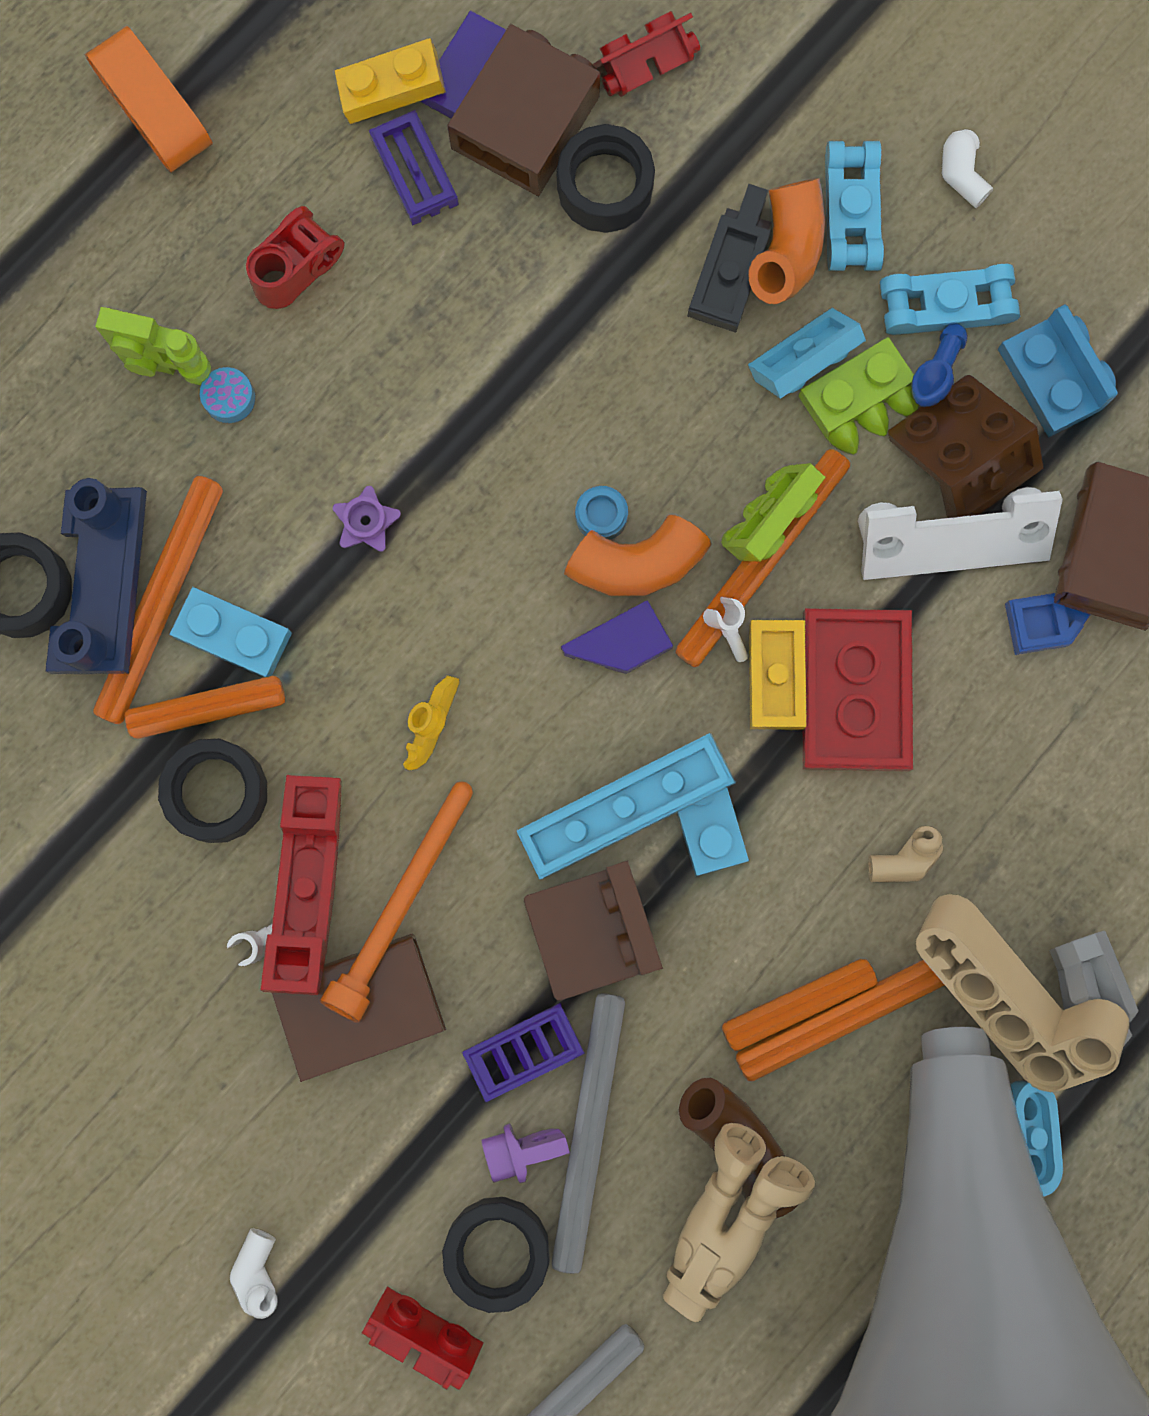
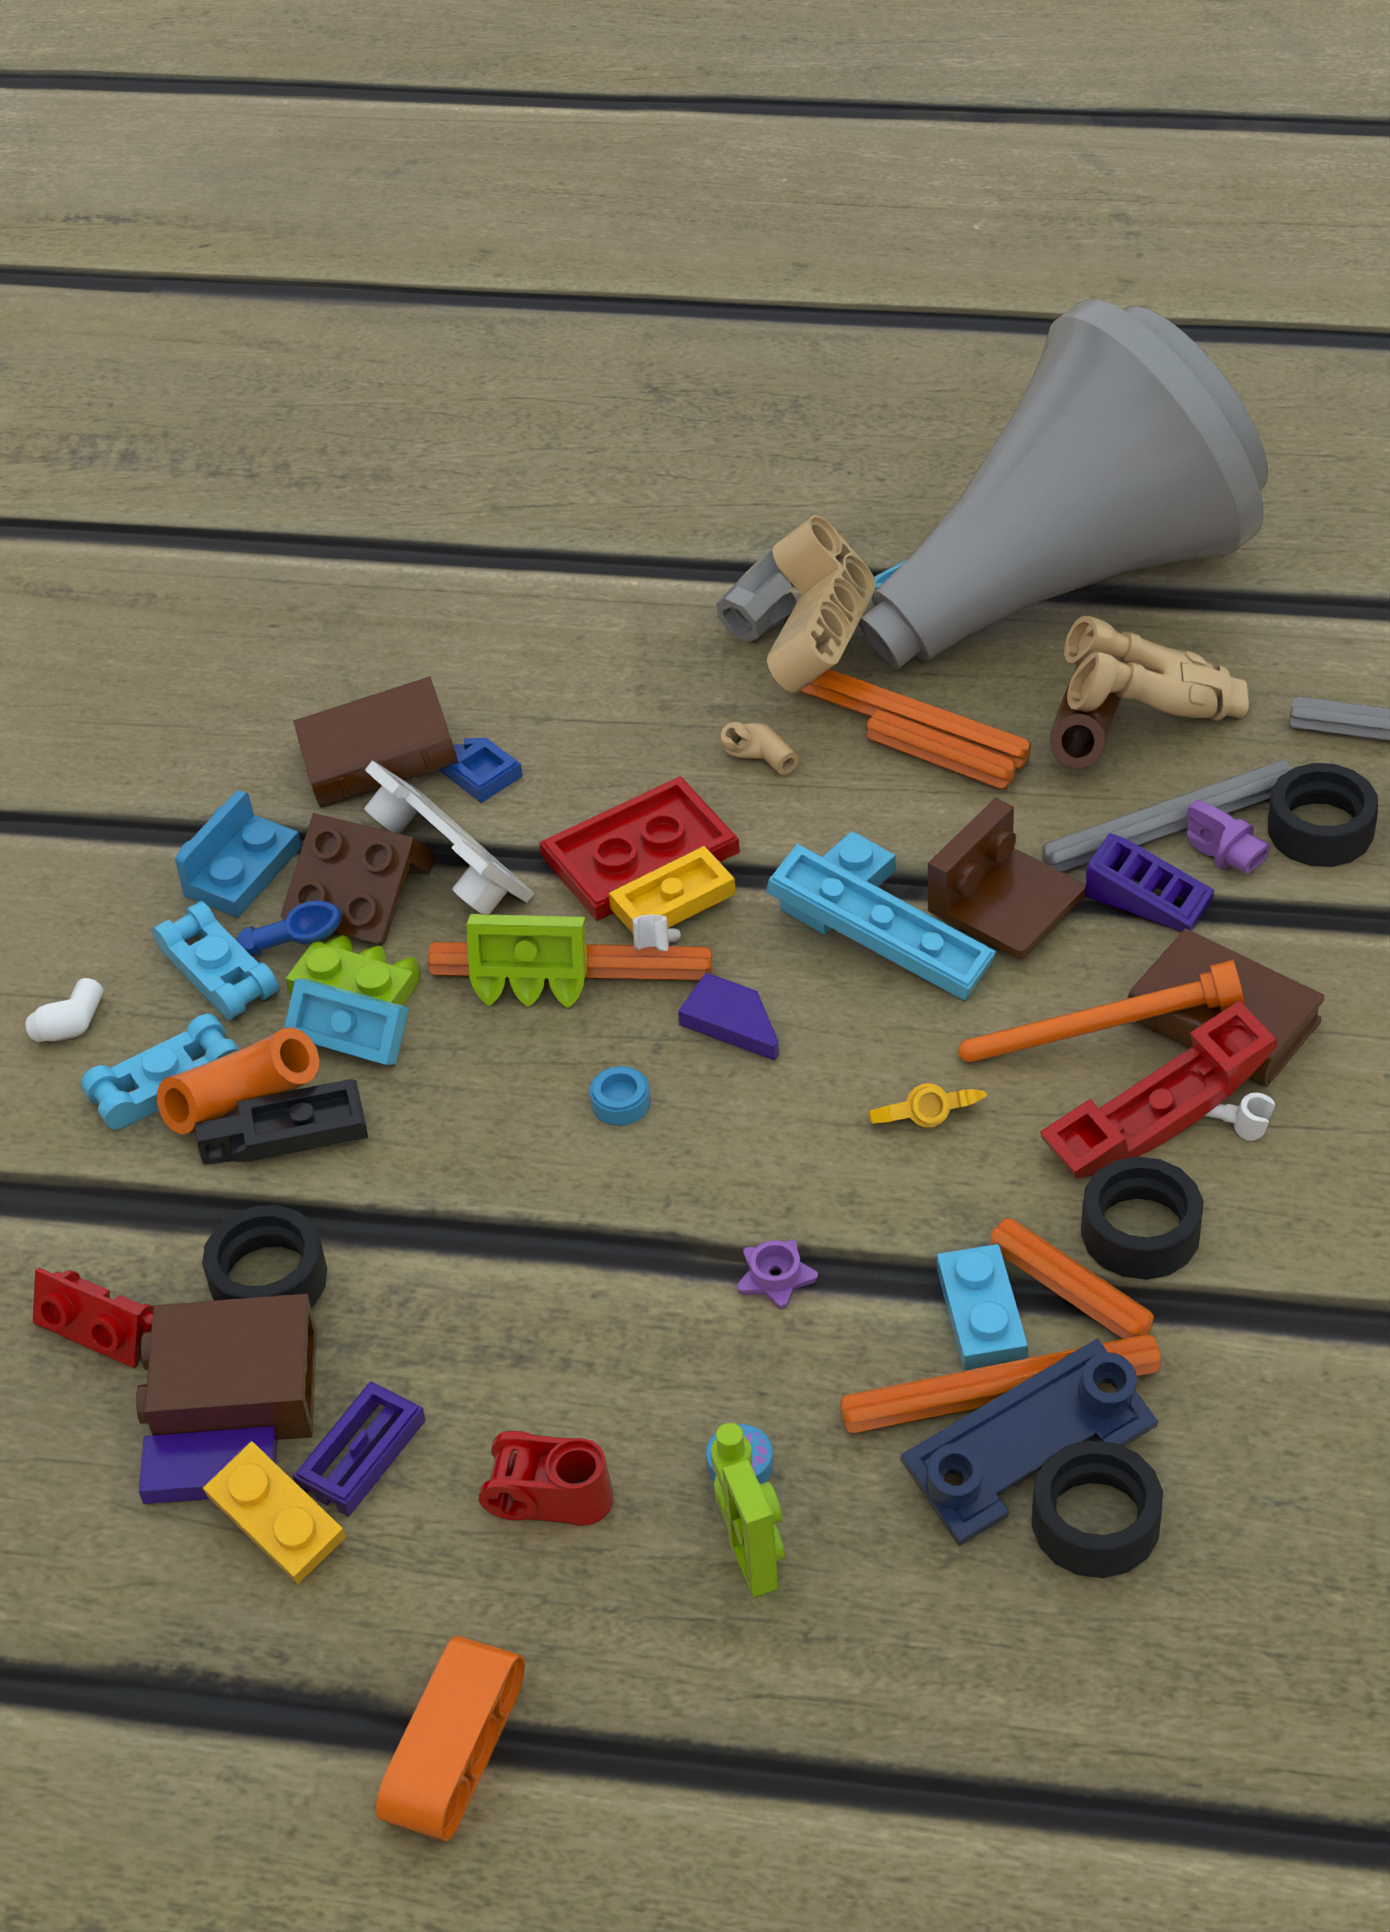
camera: 120 degrees left, 35 degrees down
(640, 566) = (652, 1026): orange cylinder -> none

